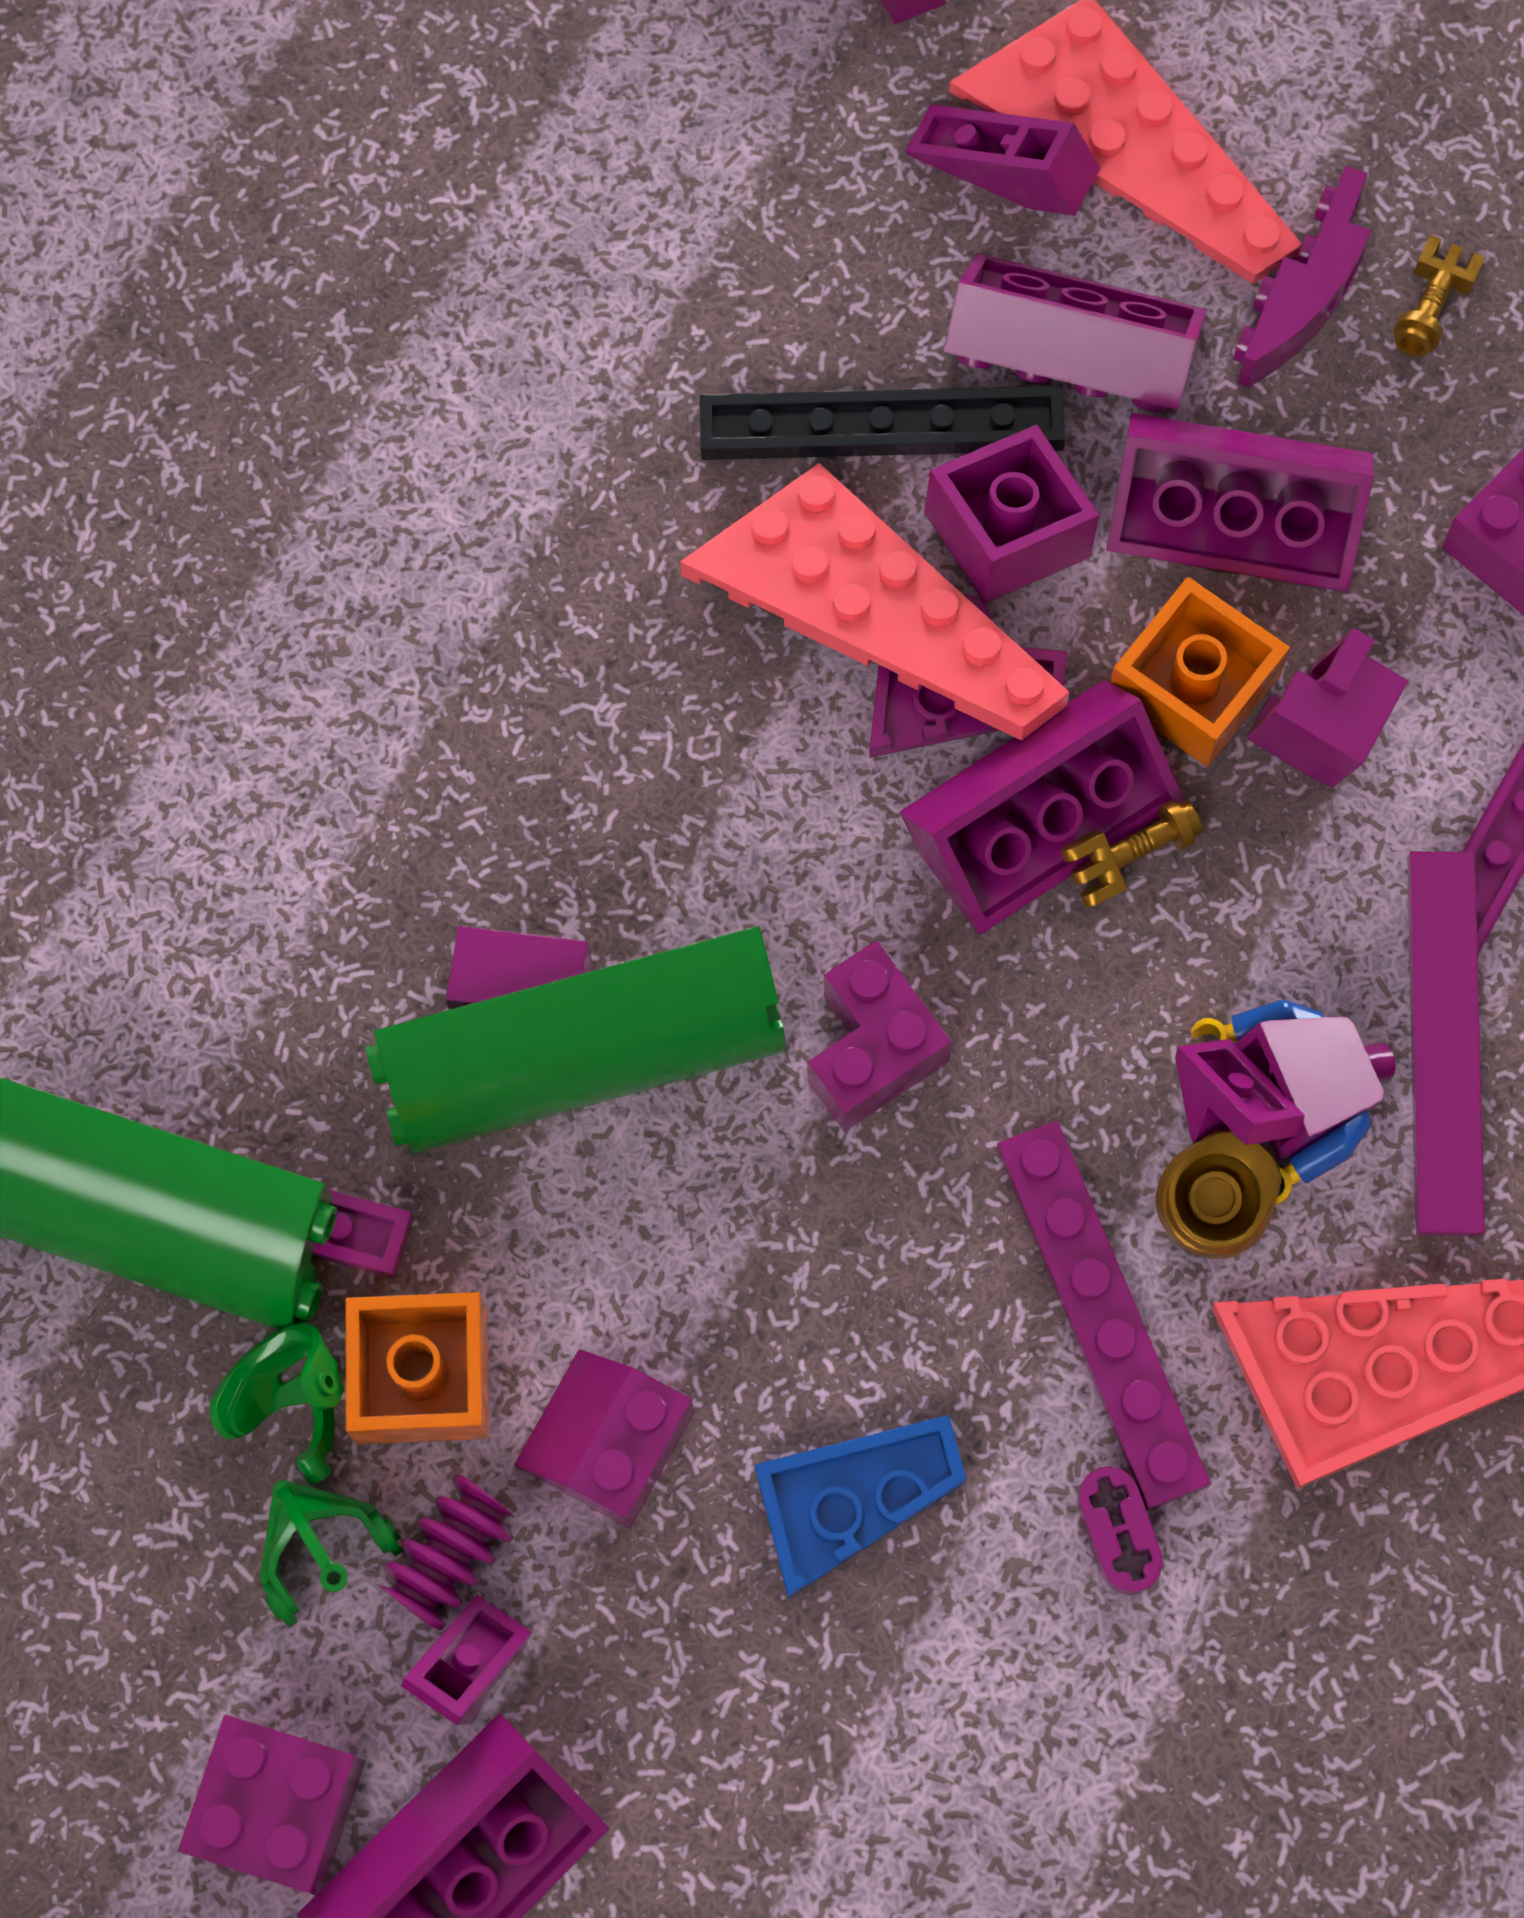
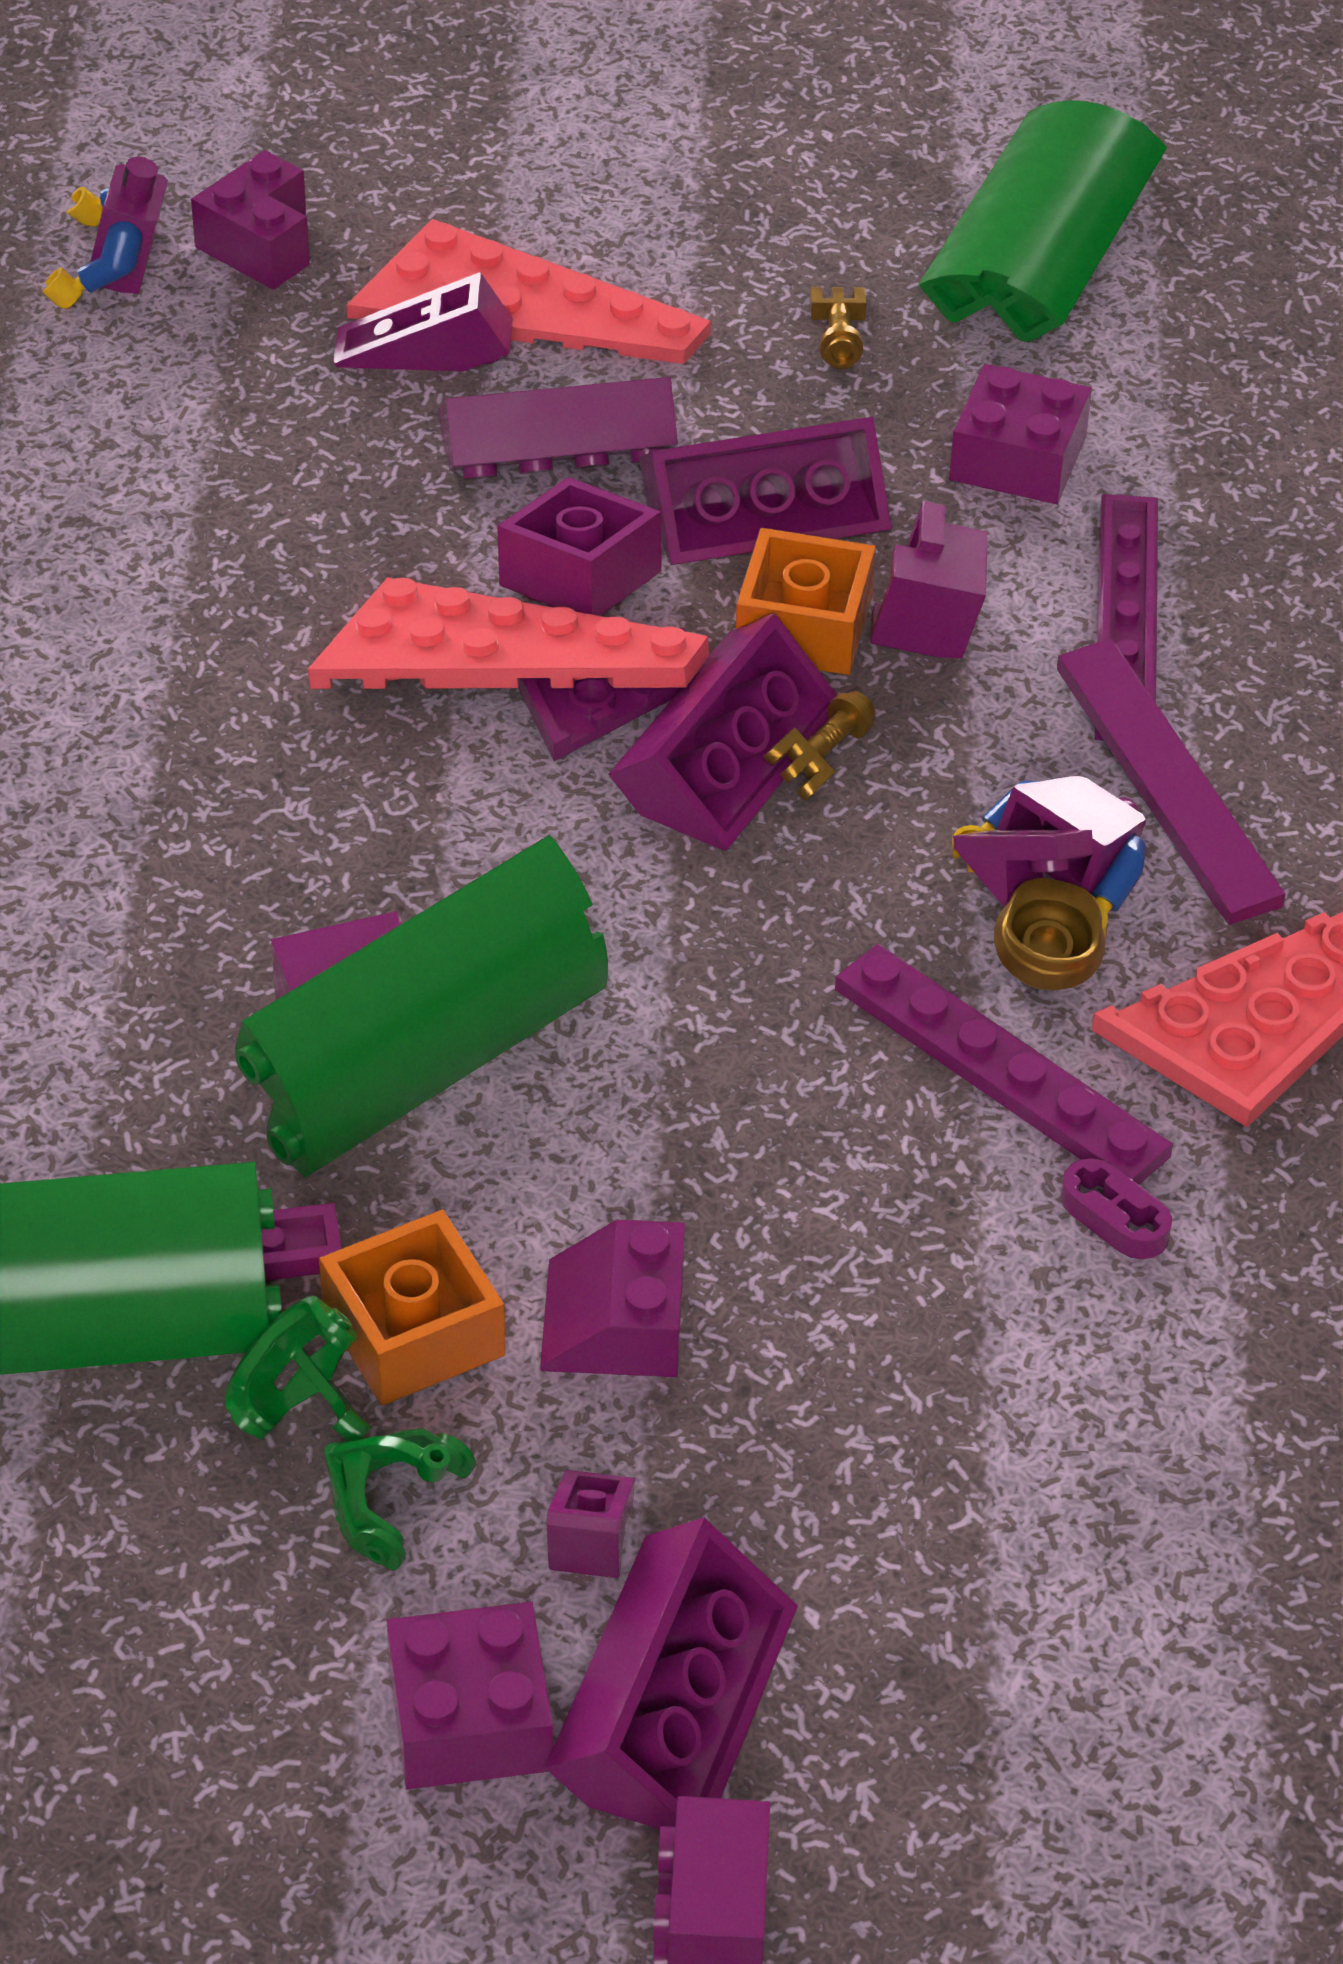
camera: 30 degrees left, 25 degrees down
(448, 1552) = (523, 1434): magenta piece -> none
(853, 1493) = (866, 1266): blue wing -> none
(874, 421) = (400, 540): black plate -> none
(889, 1040) = (688, 934): magenta brick -> none
(1306, 289) = (732, 340): magenta slope -> none

